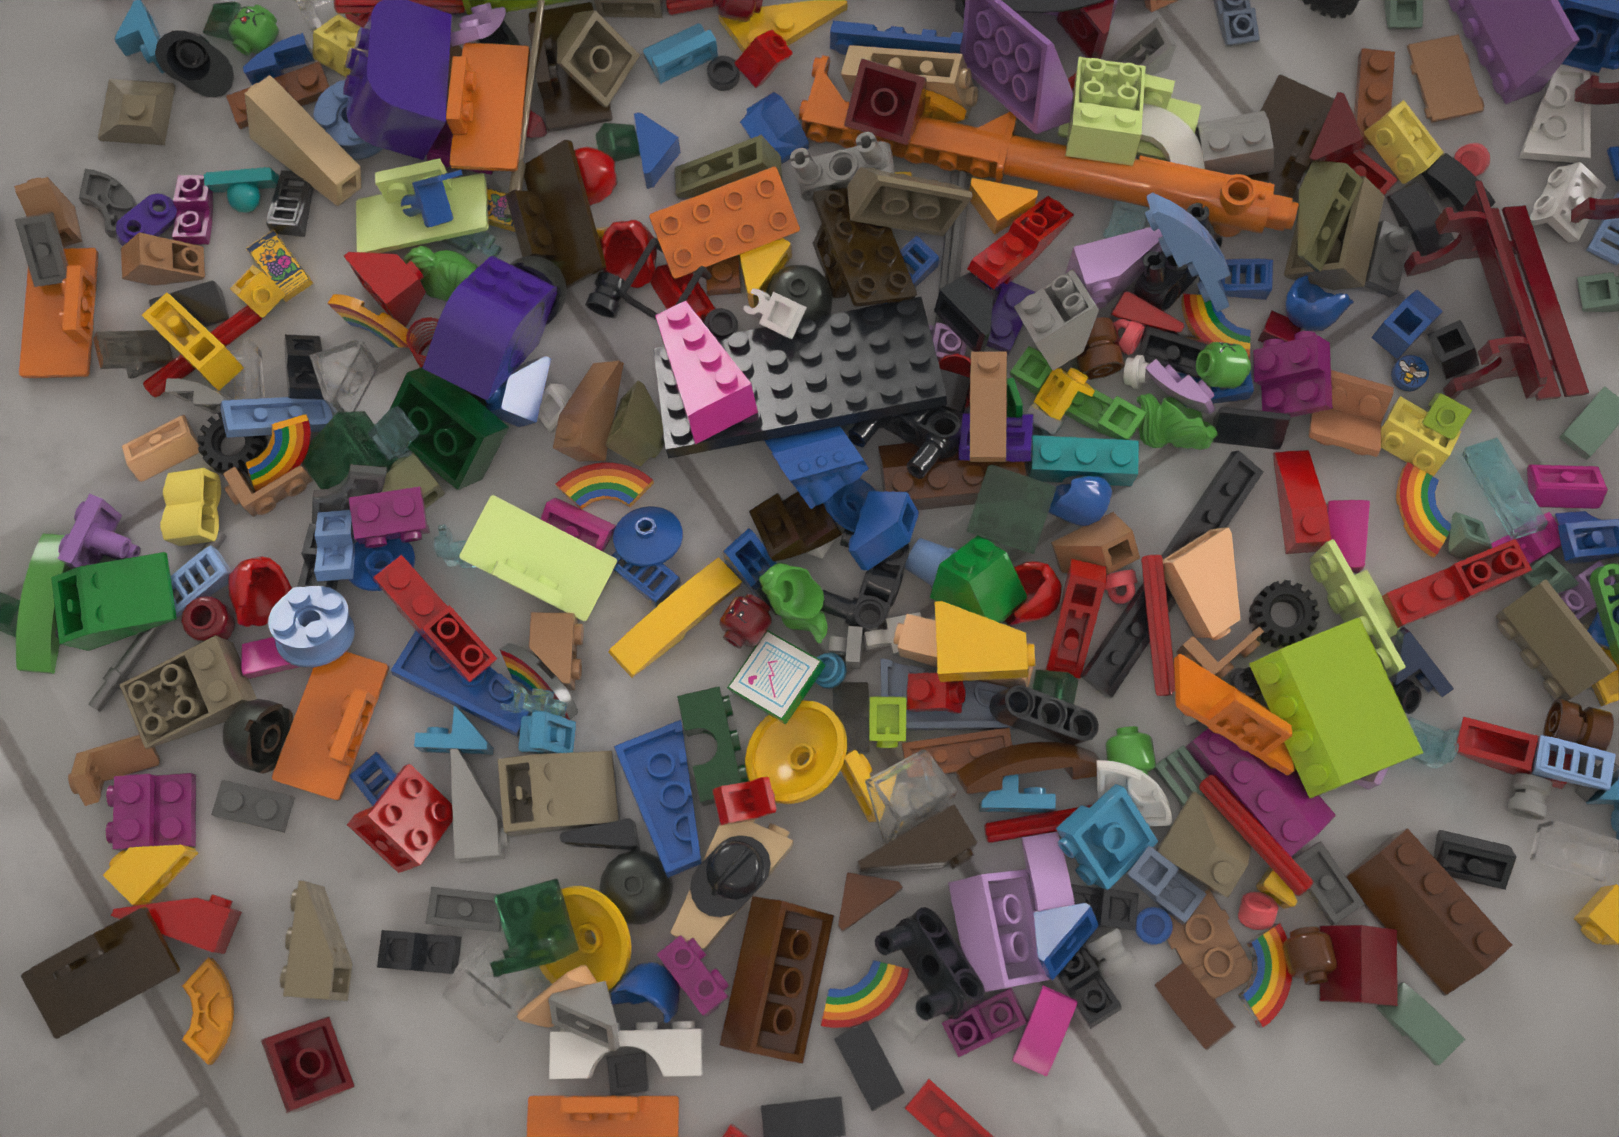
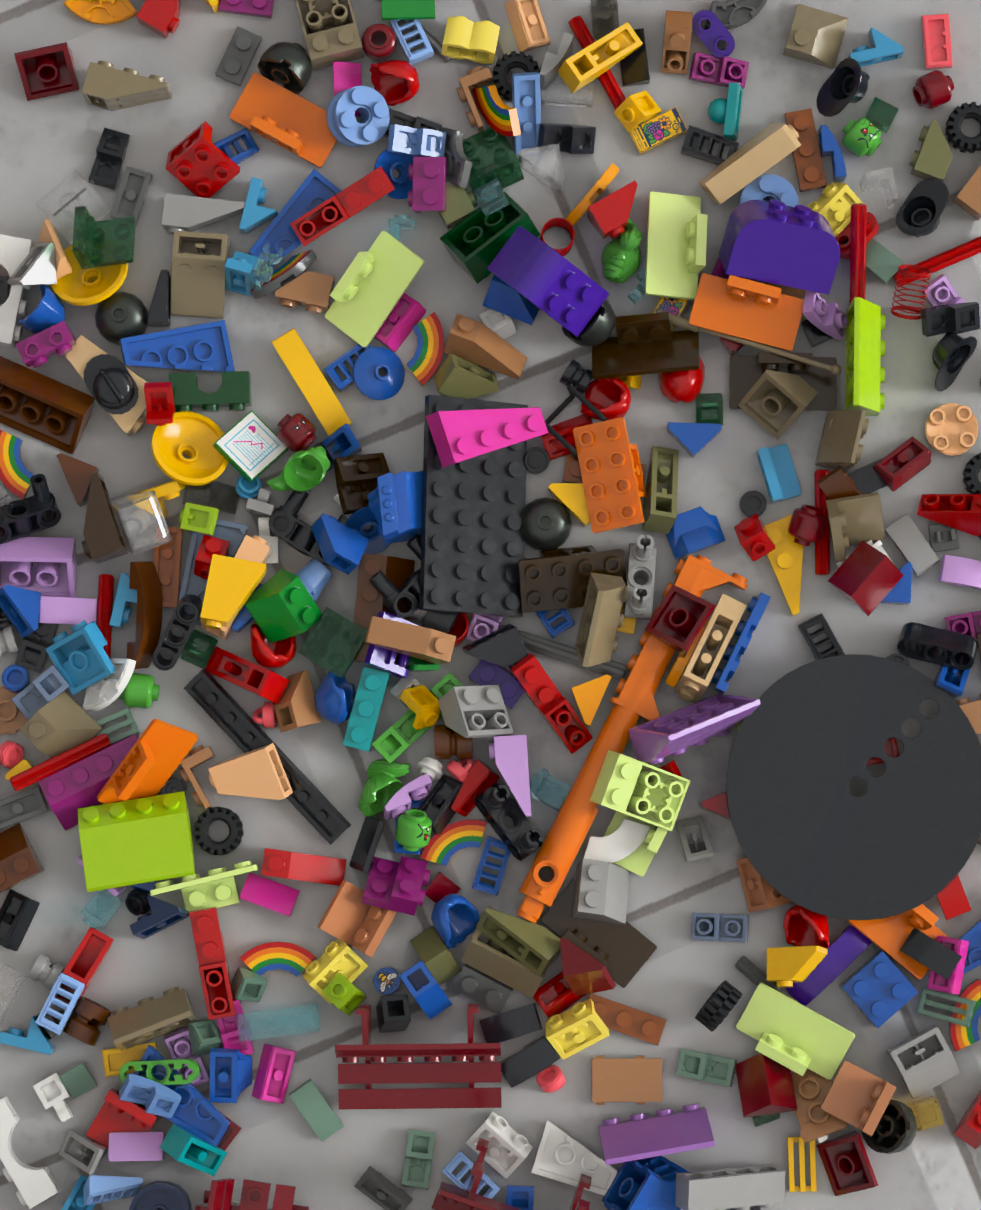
camera: 100 degrees right, 10 degrees up
(430, 200) = (673, 254): blue bracket -> none
(777, 312) = (526, 502): white plate -> none
(1158, 624) = (232, 733): red axle -> none
(1190, 245) = (507, 824): medium blue slope -> none
(1359, 323) = (436, 955): none -> olive slope

